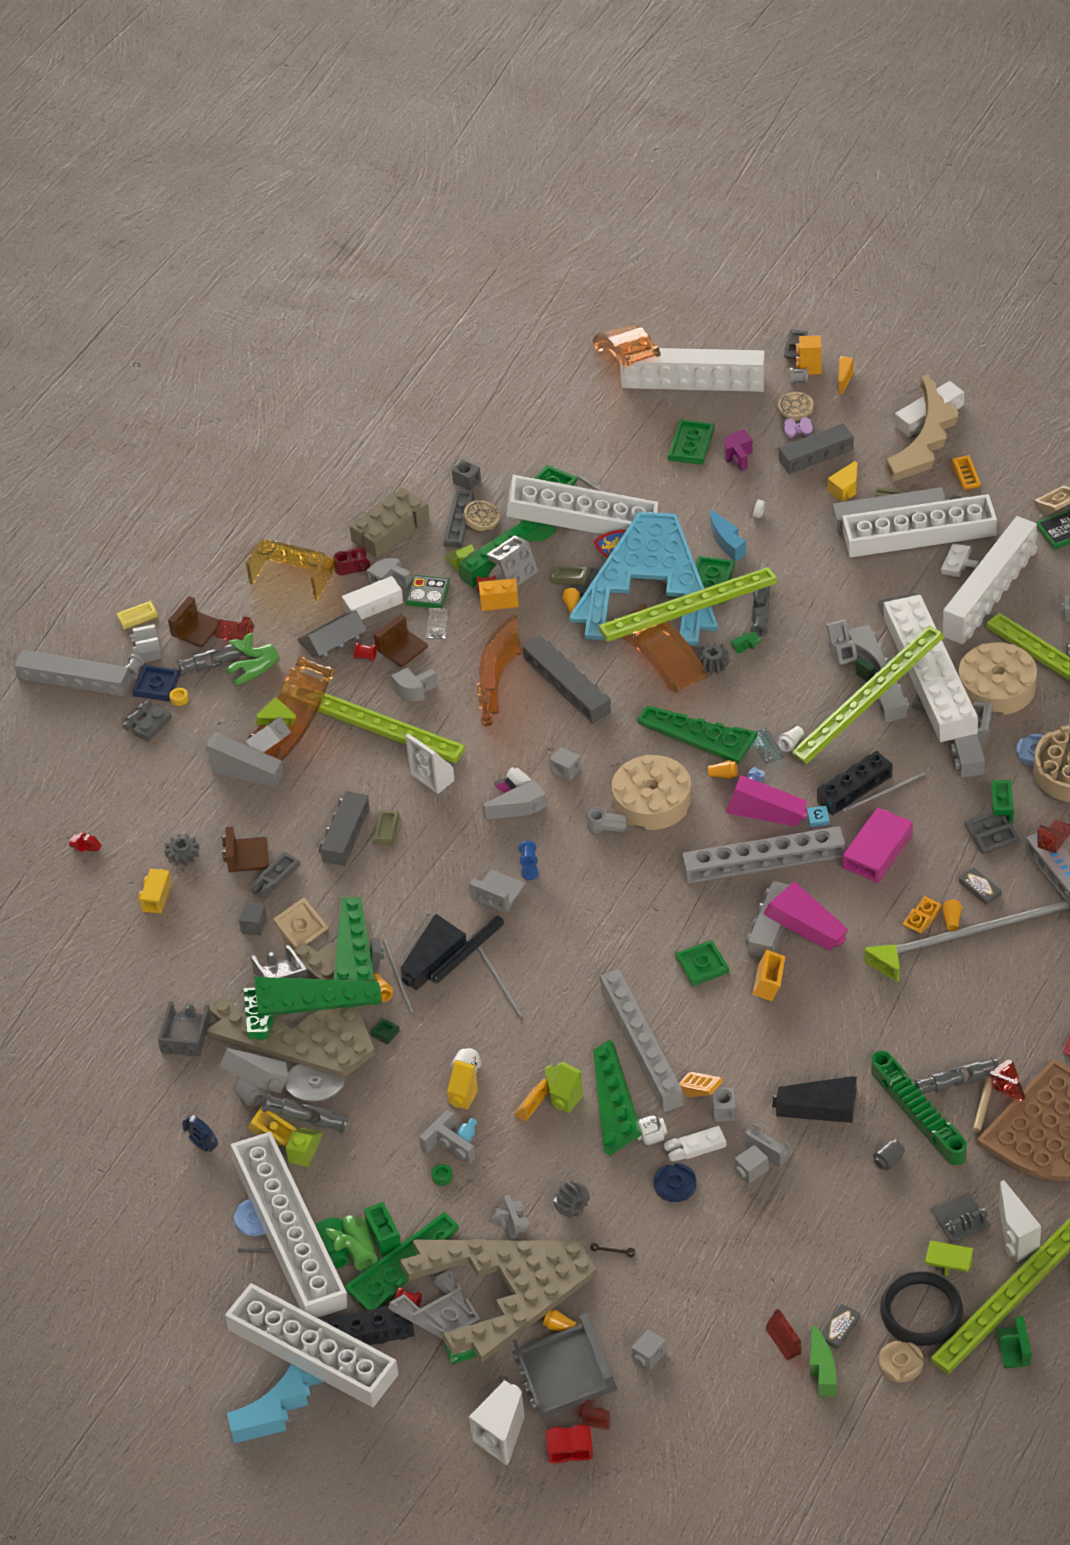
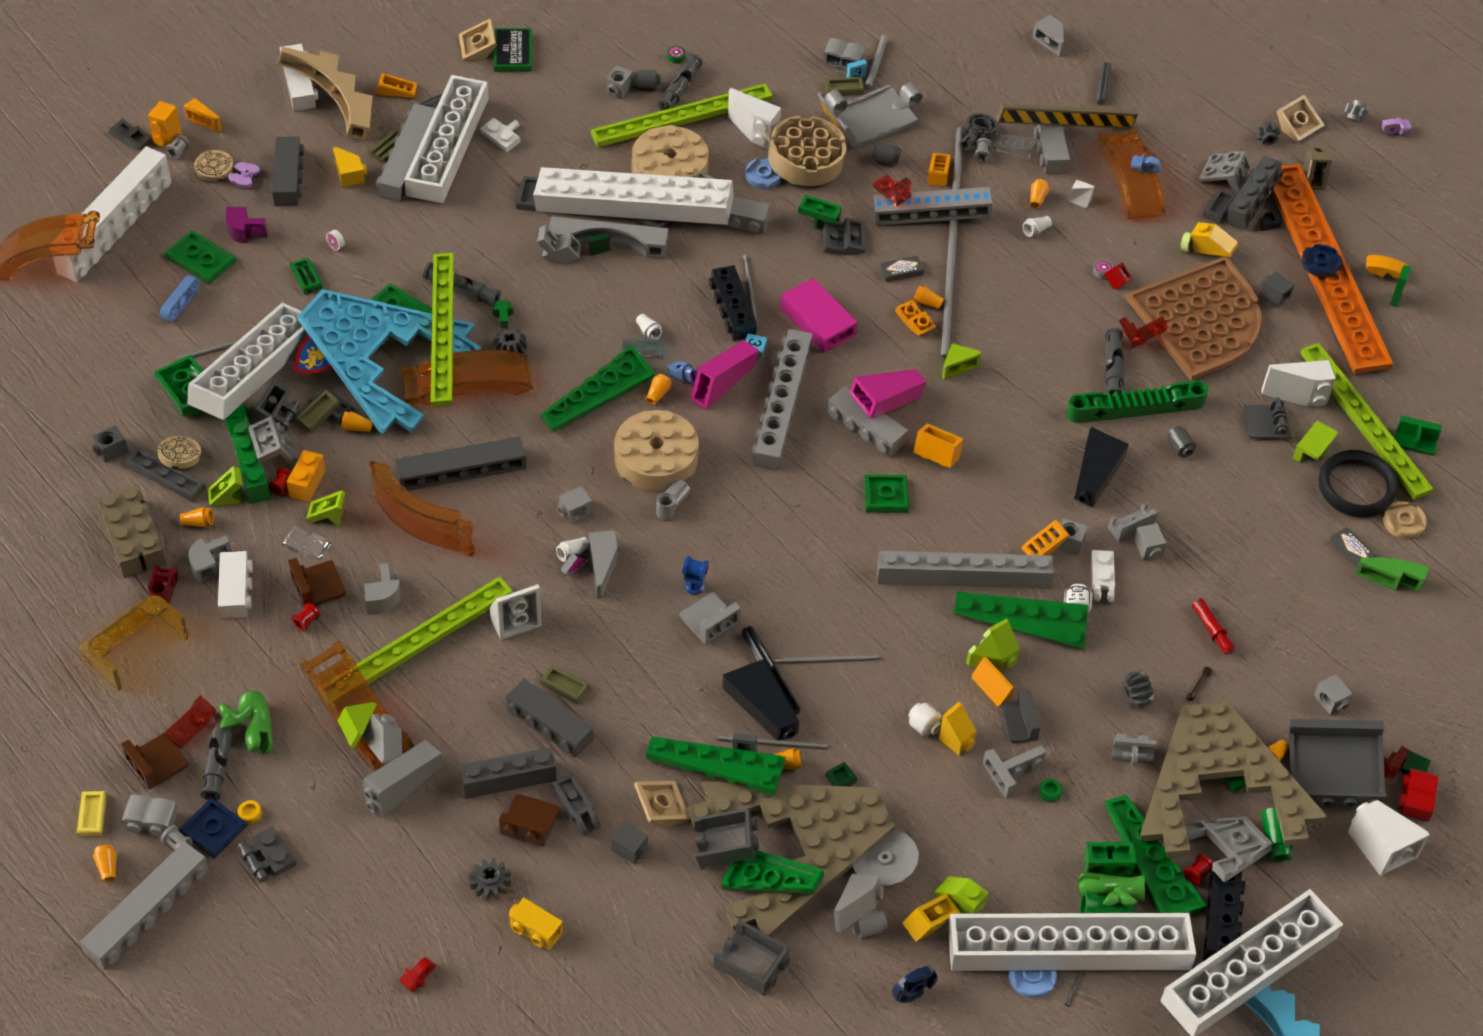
camera: 75 degrees left, 5 degrees up
(98, 638) = (105, 860): none -> light orange cone
(280, 823) = (508, 772): none -> dark grey brick
(292, 1110) = (936, 876): dark grey piece -> none
(299, 995) = (782, 826): green wing -> none
(333, 634) = (258, 636): dark grey slope -> none
(426, 555) = (199, 517): none -> light orange cone
(427, 591) = (253, 535): tile -> none
(467, 1130) = (1007, 749): medium azure cylinder -> none
(474, 622) = (327, 507): none -> lime slope
(505, 1132) = (1021, 719): none -> dark grey panel
(553, 544) = (271, 404): none -> dark grey brick
(604, 1437) = (1415, 762): none -> dark green tile
(642, 443) = (179, 298): none -> medium blue beam
(675, 1182) = (1140, 608): dark blue tile -> none
(684, 1237) = (1217, 633): none -> red axle
(719, 508) = (310, 286): none -> green tile
(727, 537) = (353, 276): dark azure slope -> none
(783, 1335) = (1351, 589): clear red slope -> none
(867, 694) = (647, 247): lime plate -> none
(982, 1106) = (1150, 361): tan bar -> none
(990, 580) = (552, 116): white brick -> none

